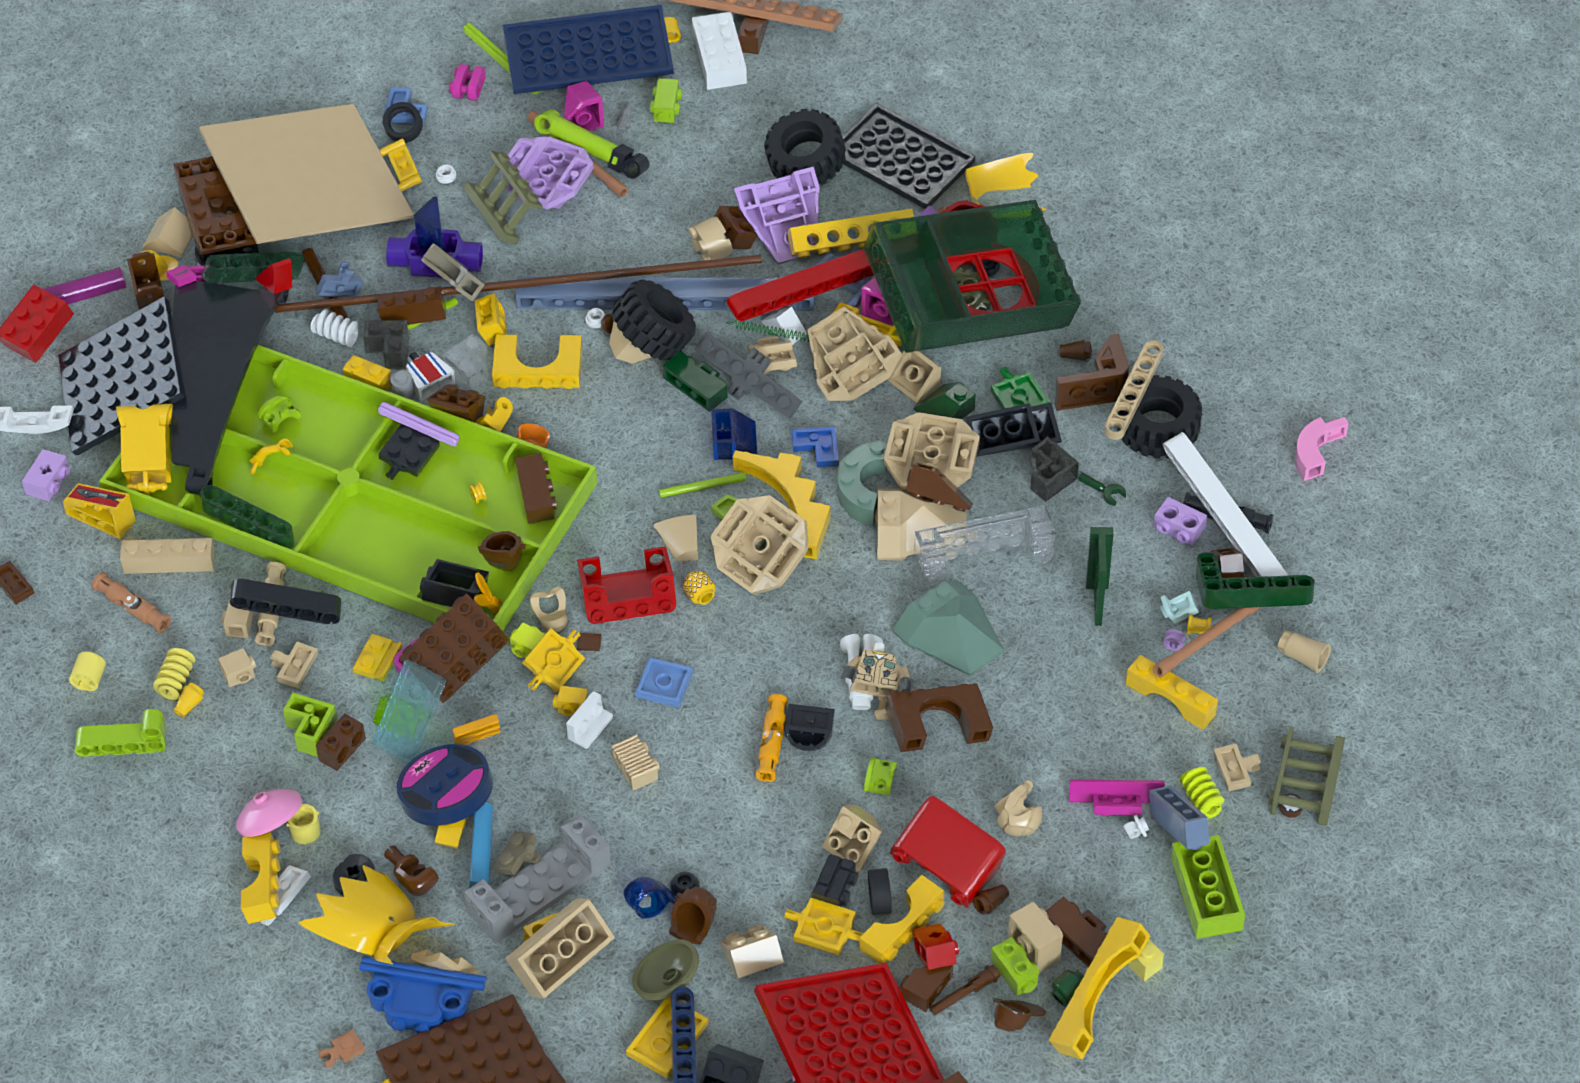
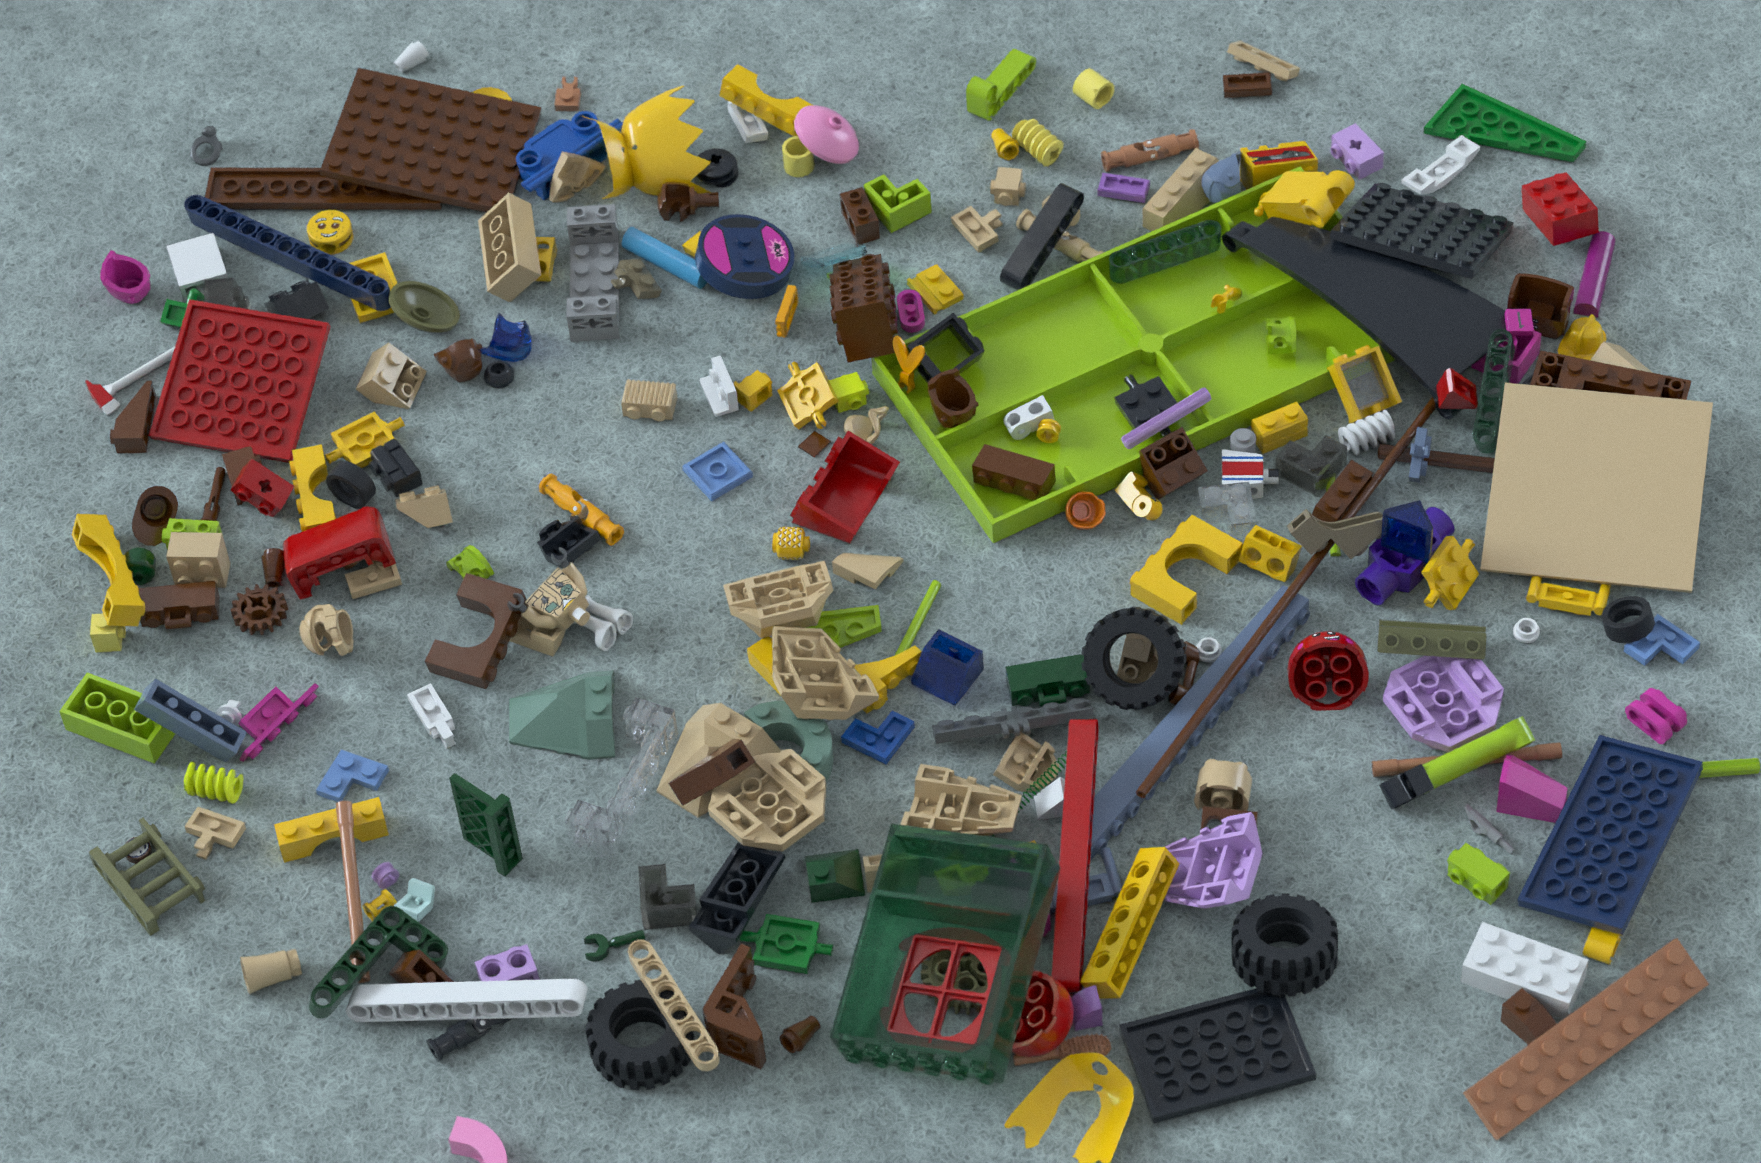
camera: 130 degrees right, 0 degrees up
(143, 520) = (1222, 179): none -> sand blue helmet
(183, 598) = (1123, 187): none -> medium lavender plate
(283, 340) = (1364, 383): none -> window
(446, 218) = (1450, 573): none -> yellow plate
(474, 508) = (1027, 417): none -> white leg
(568, 238) = (1344, 667): none -> red cylinder
(815, 472) = (816, 676): none -> tan wedge
(1024, 705) = (433, 714): none -> white hinge
(1024, 880) = (259, 609): none -> reddish brown gear
(1116, 727) = (350, 769): none -> medium blue plate

